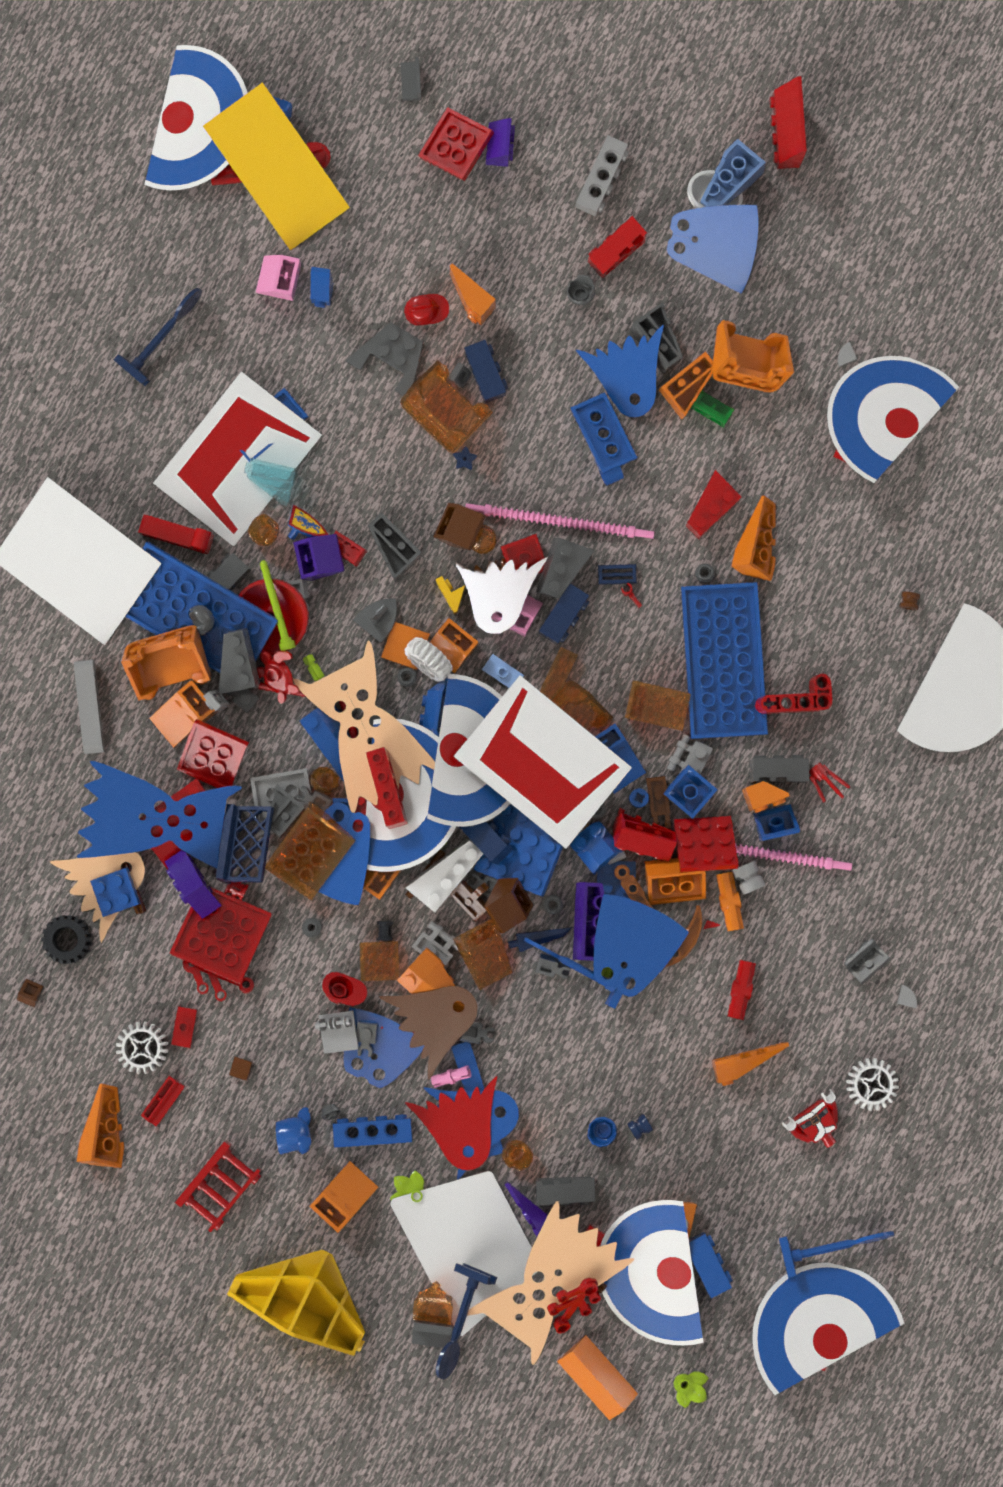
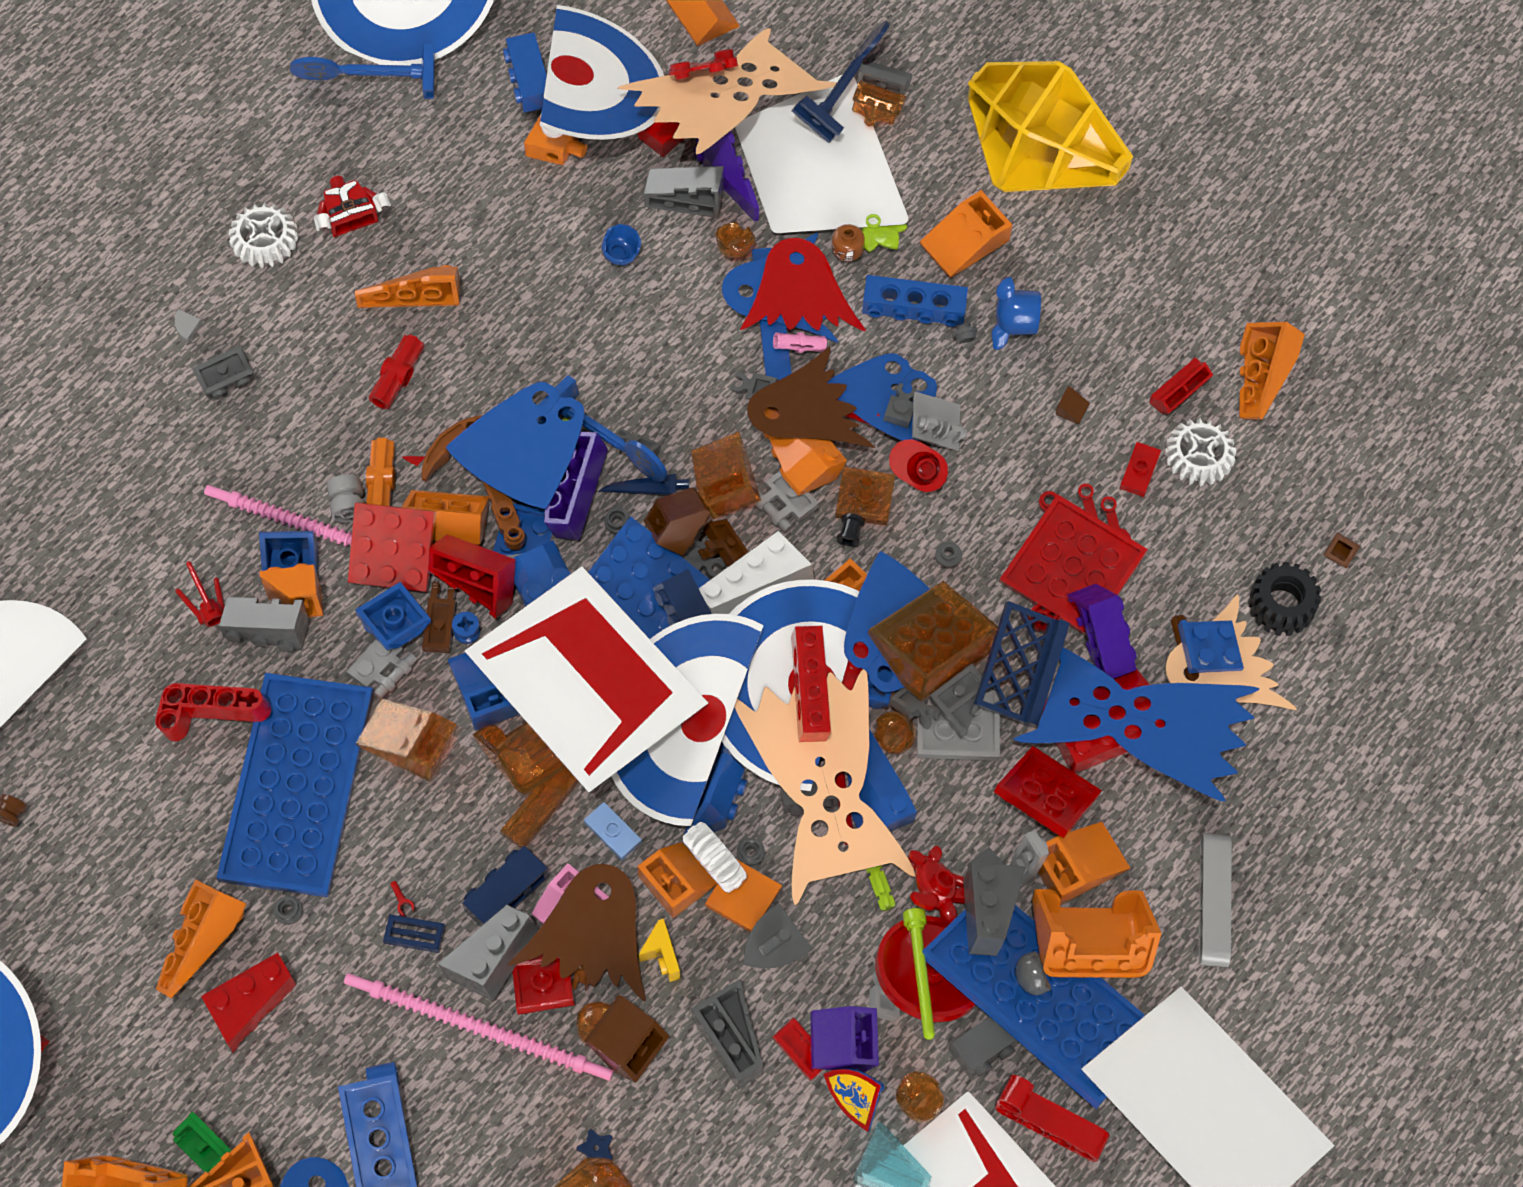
camera: 165 degrees left, 20 degrees down
(212, 1168) = (1129, 300): red fence -> none
(430, 1163) = (848, 243): none -> dark orange head
(639, 1127) = (571, 243): dark blue wheel -> none

